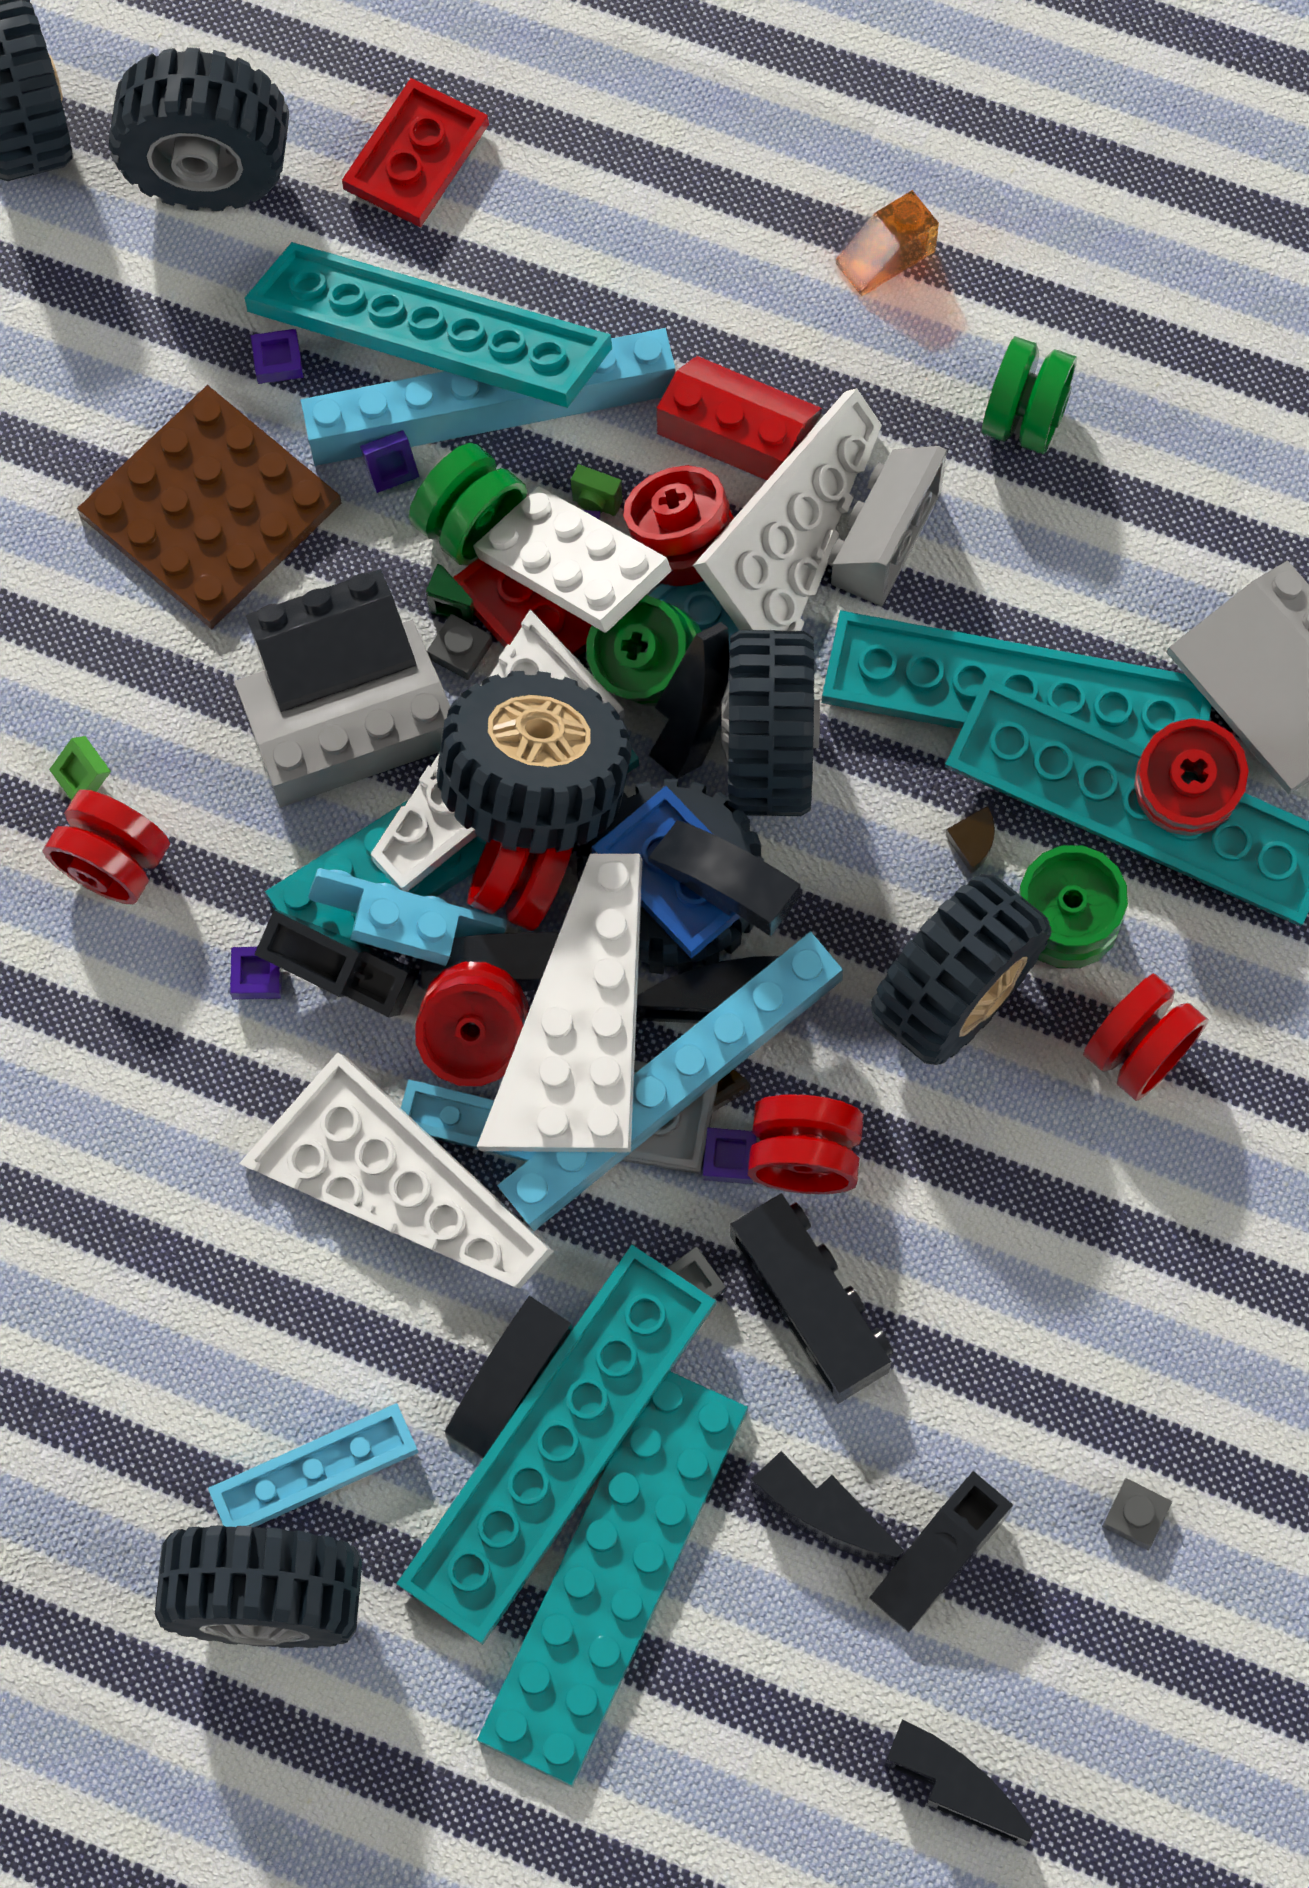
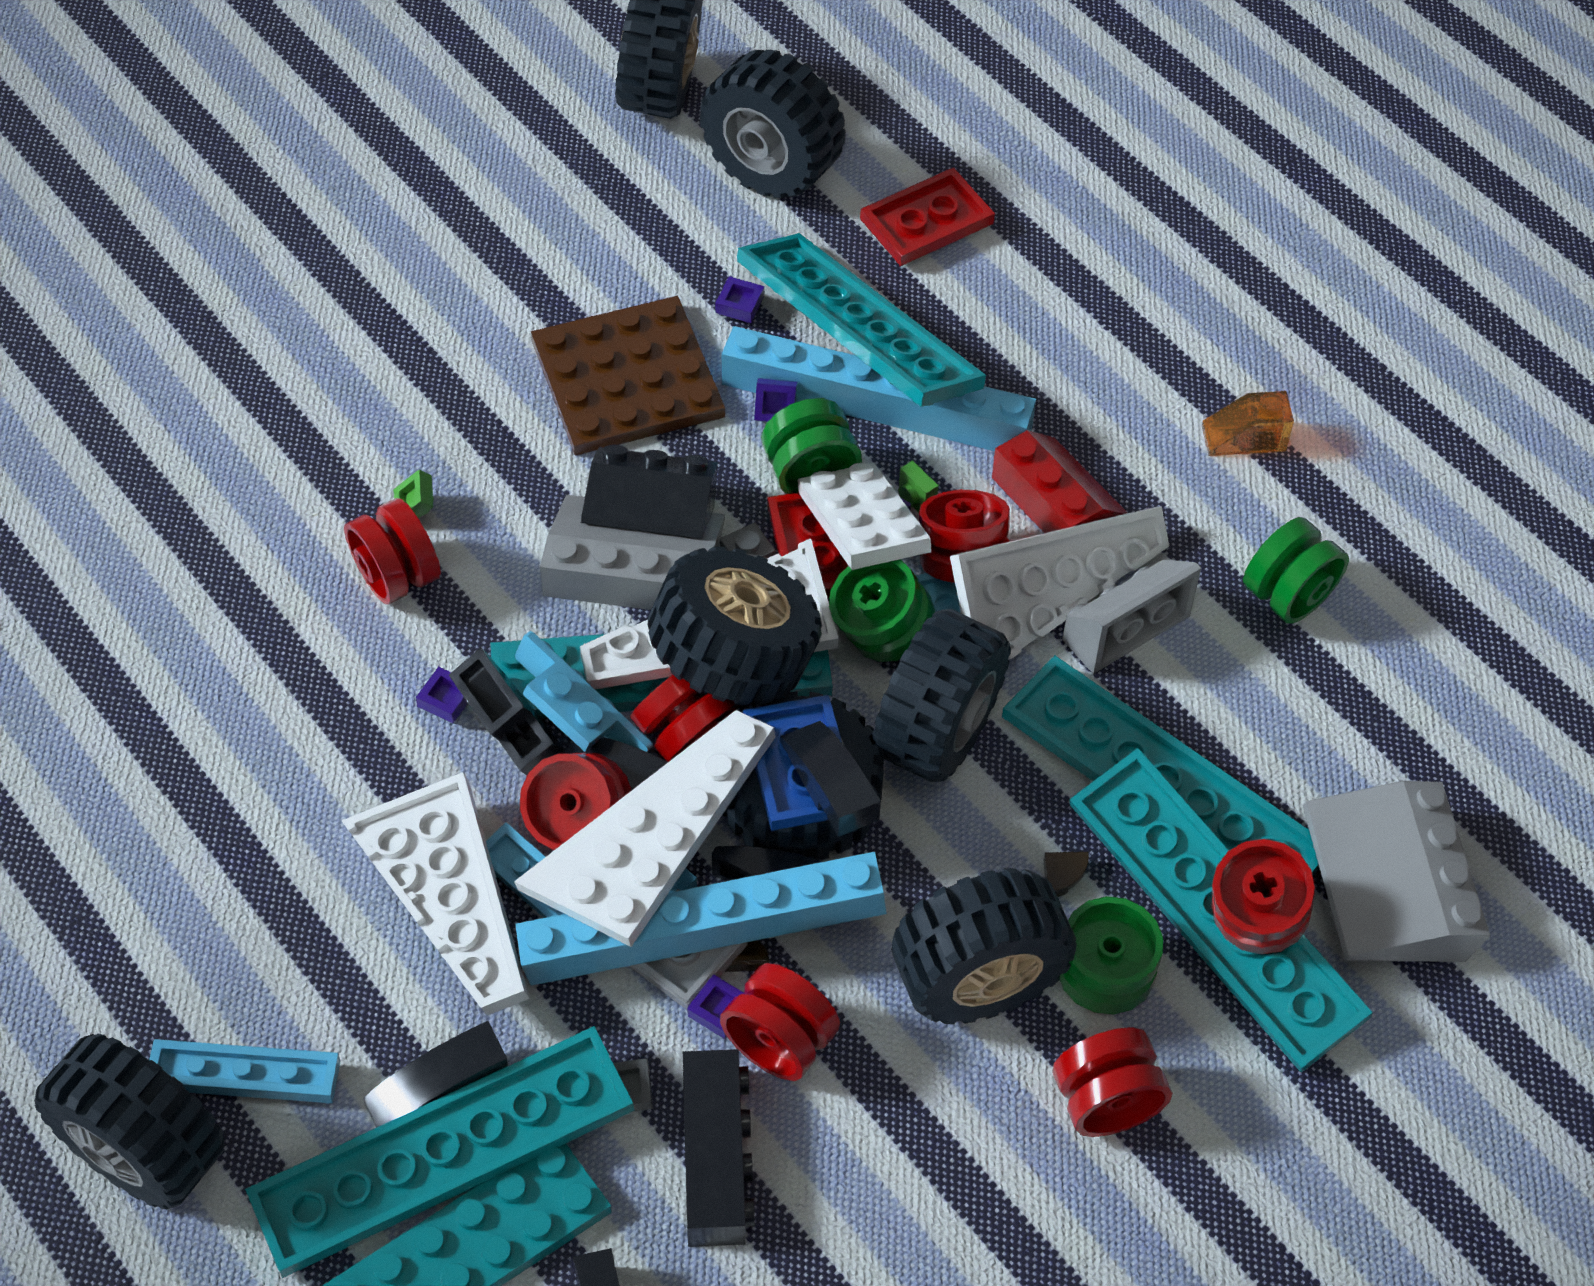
camera: 25 degrees right, 15 degrees down
(448, 597) = (758, 508): dark green slope -> none
(693, 703) = (883, 654): black slope -> none

